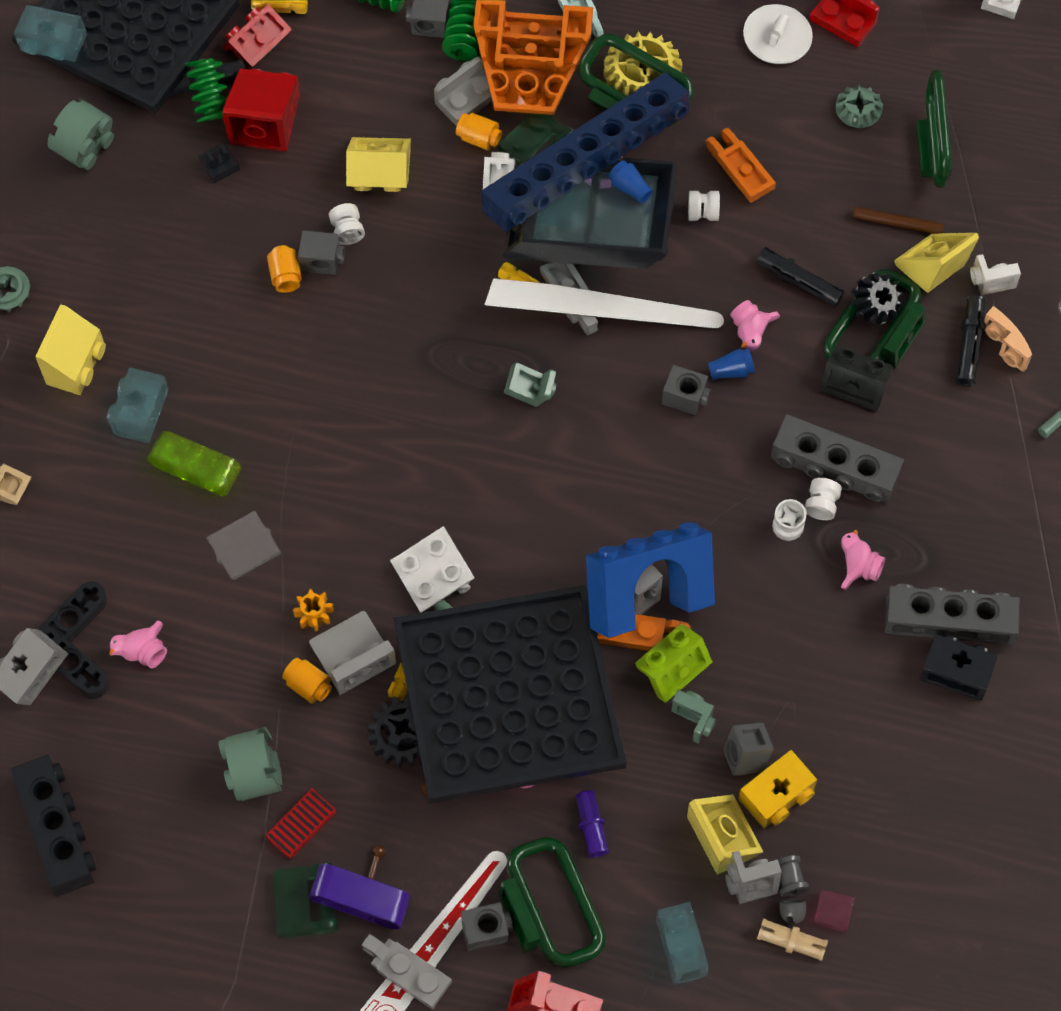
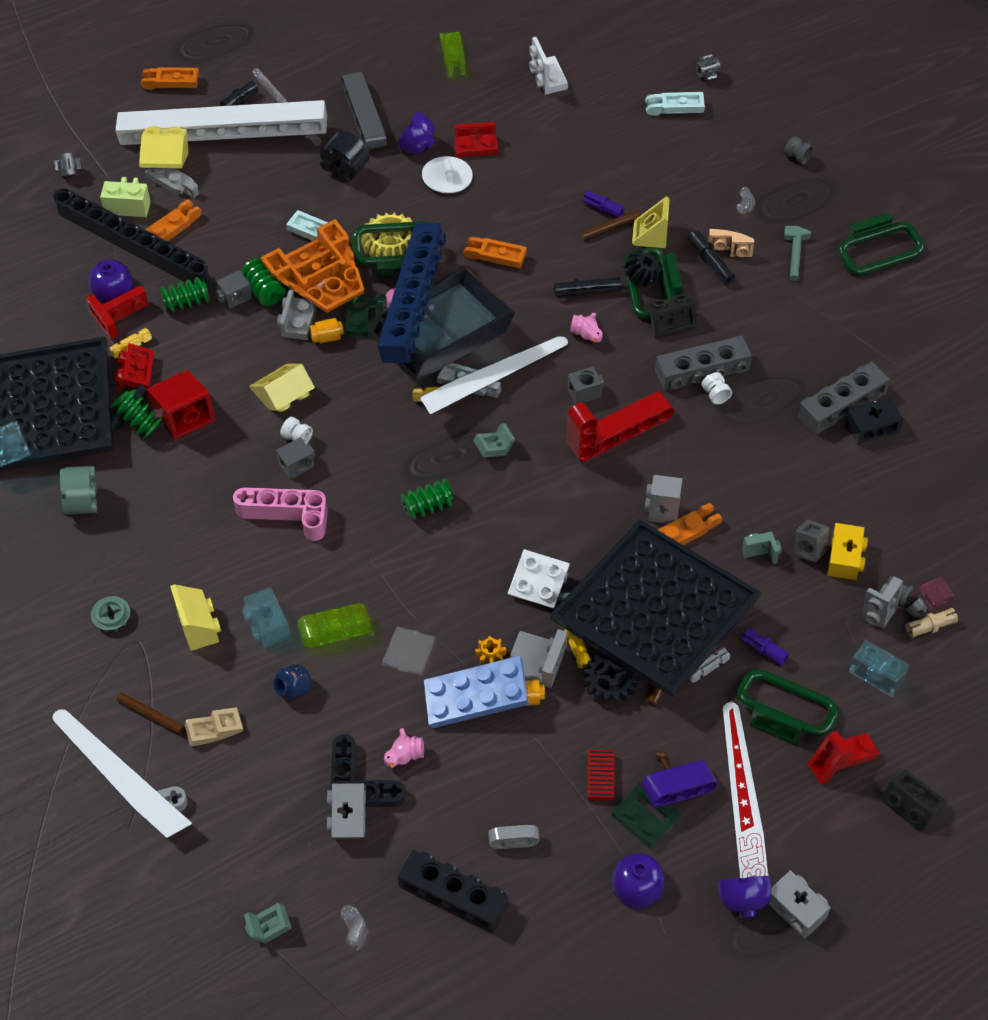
camera: 40 degrees left, 10 degrees down
(100, 492) = (292, 682): none -> dark blue head
(158, 818) = (513, 836): none -> light grey beam
(219, 162) = (179, 452): black tile -> none
(232, 960) = (638, 880): none -> dark purple cylinder
(251, 764) = (543, 759): sand green brick -> none
(255, 296) = (251, 504): none -> bright pink beam
(257, 641) = (476, 692): none -> medium blue plate
(284, 269) = (280, 478): light orange brick -> none
(402, 398) = (427, 499): none -> green piece
(407, 970) = (743, 805): light grey hinge -> none
(475, 937) = (760, 753): dark grey brick -> none
(496, 167) = (361, 346): white bracket -> none
(519, 797) = (711, 663): none -> light grey axle
(615, 572) = (660, 487): blue arch -> none
(629, 181) = (451, 293): blue cone -> none
(671, 463) = (592, 437): none -> red beam
(674, 661) = (724, 526): lime bracket -> none
(710, 202) = (499, 283): white wheel -> none
(722, 830) = (838, 598): light yellow slope -> none
(732, 365) = (598, 354): blue cone -> none
(791, 513) = (710, 411): white wheel -> none
(848, 111) = (530, 188): sand green gear -> none
(860, 560) = (768, 404): bright pink animal -> none
(912, 191) = (603, 204): none -> dark purple axle
(934, 134) = (586, 171): dark green bar -> none
(995, 279) = (692, 218): white bracket -> none

